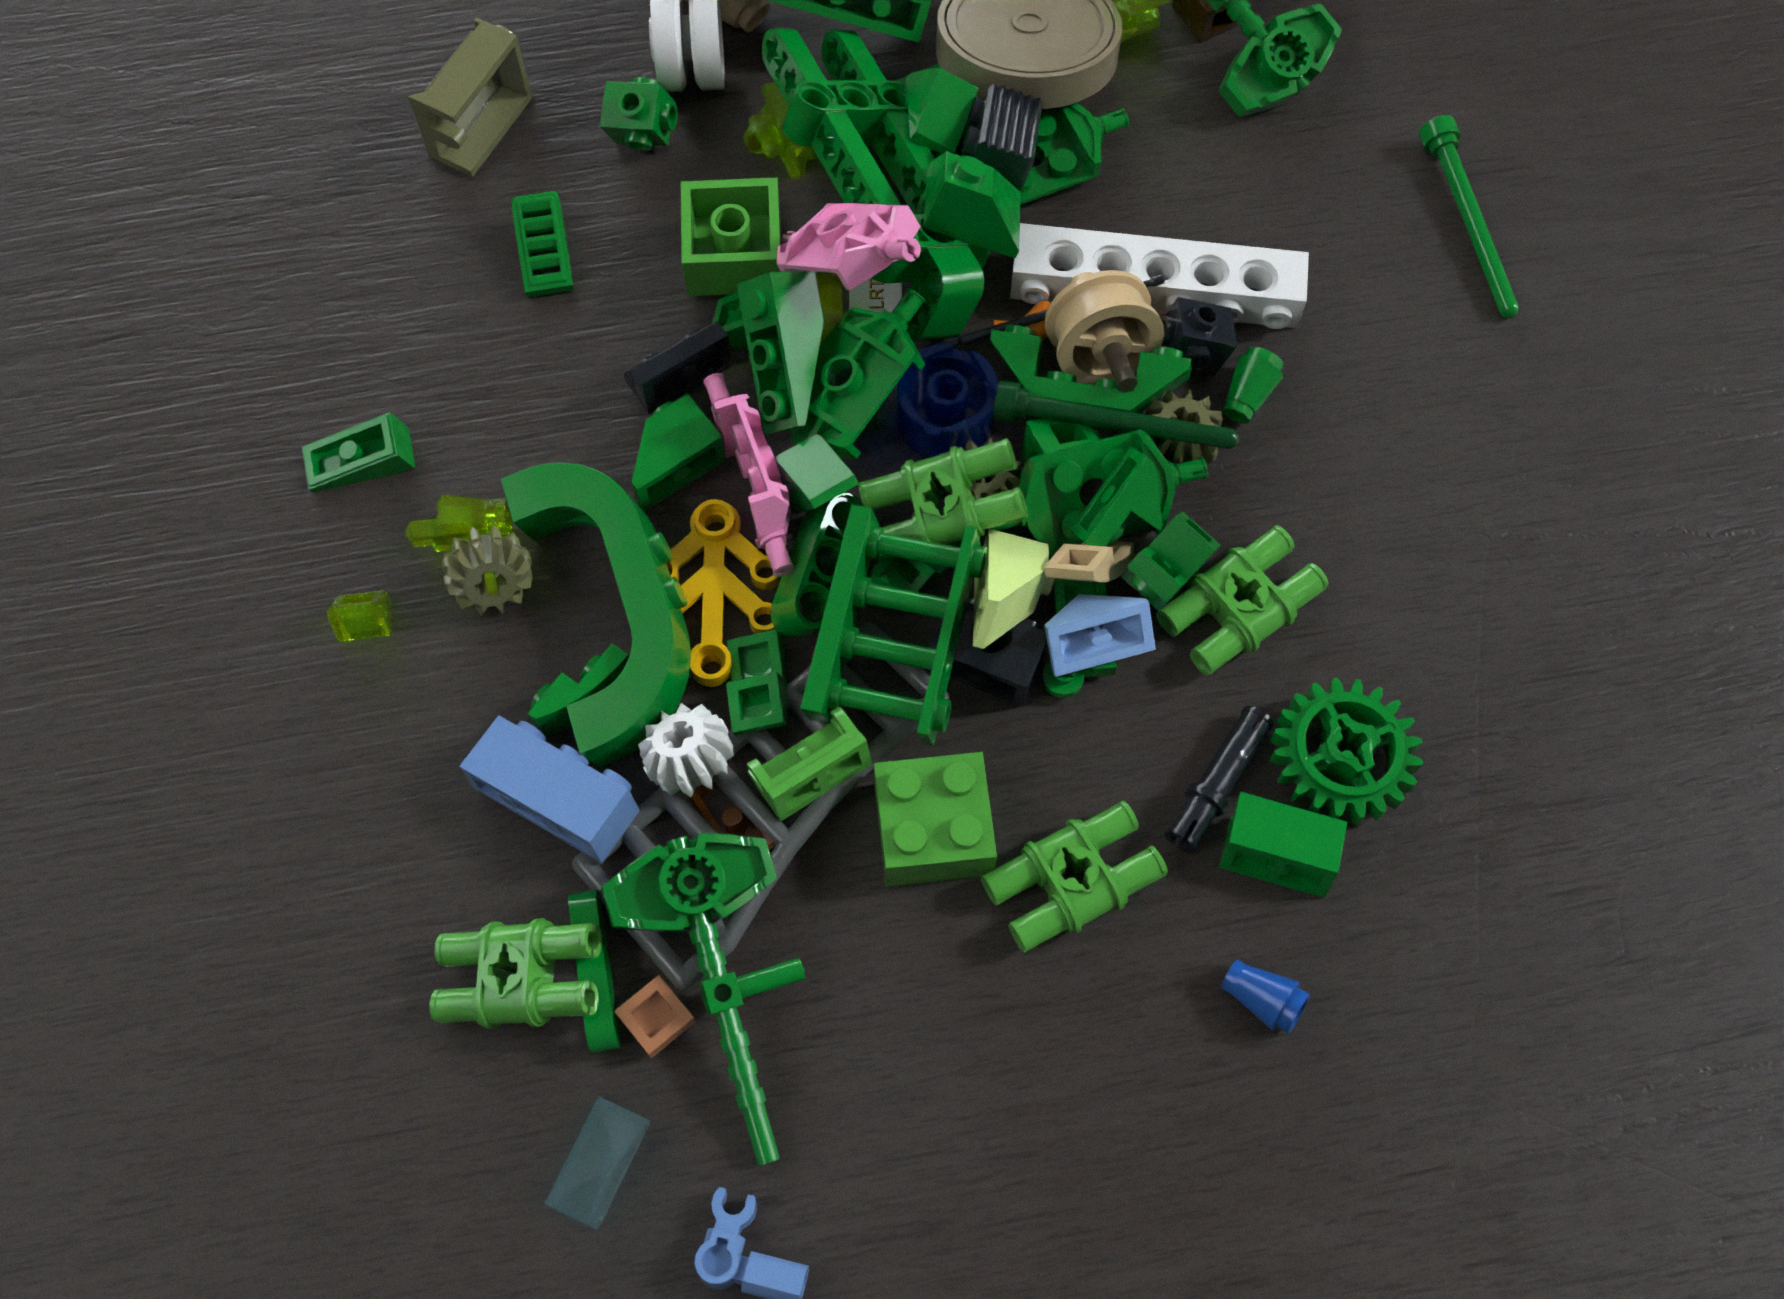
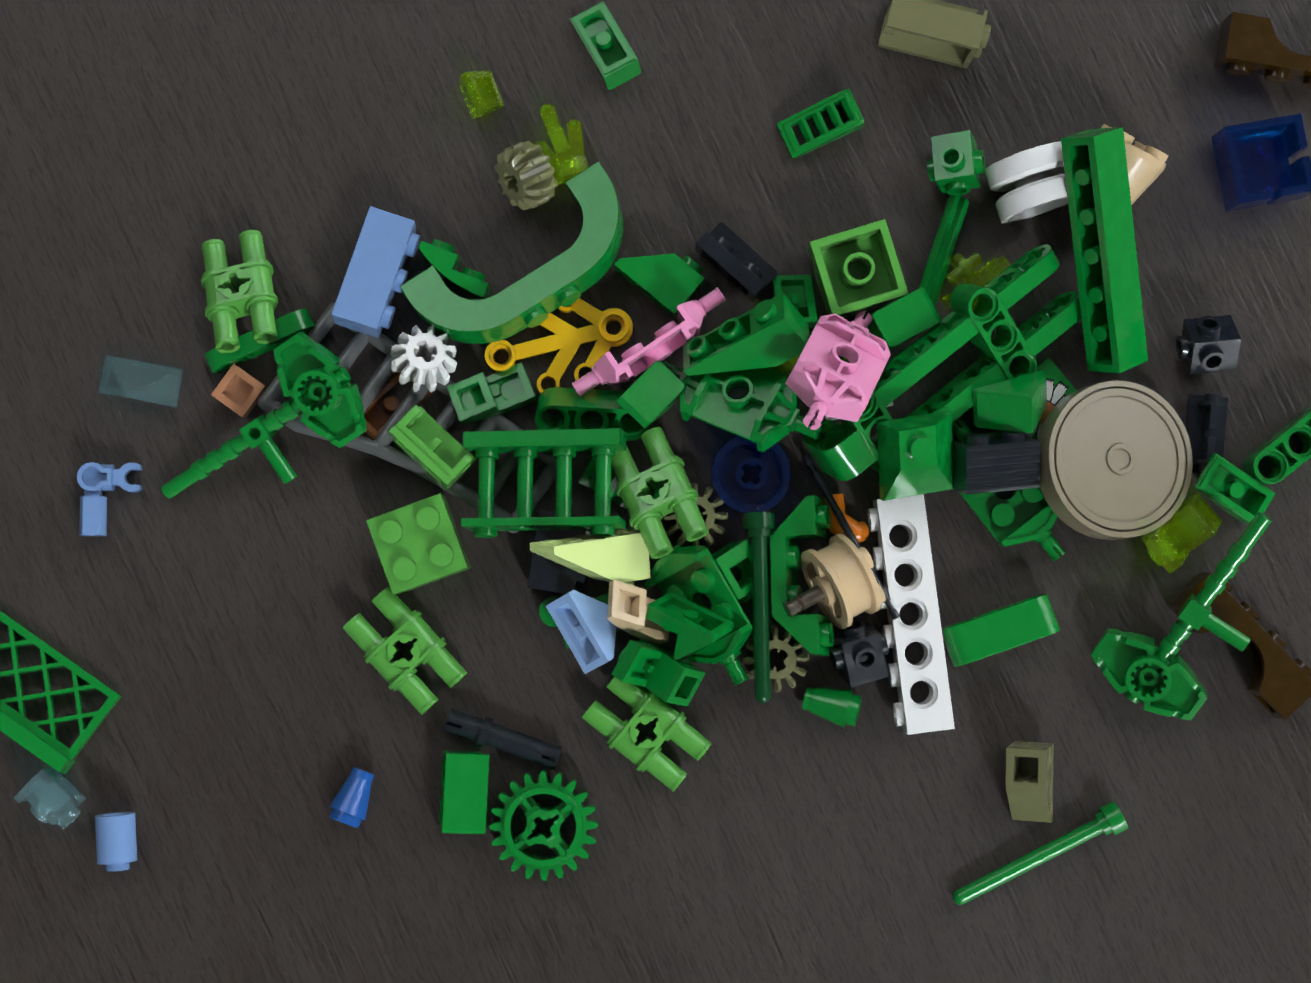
camera: 75 degrees right, 20 degrees up
(731, 156) = (944, 246): none -> green axle
(803, 189) = (904, 319): none -> green slope
(1197, 188) = (1000, 630): none -> green beam
(1383, 196) = (1030, 780): none -> olive slope

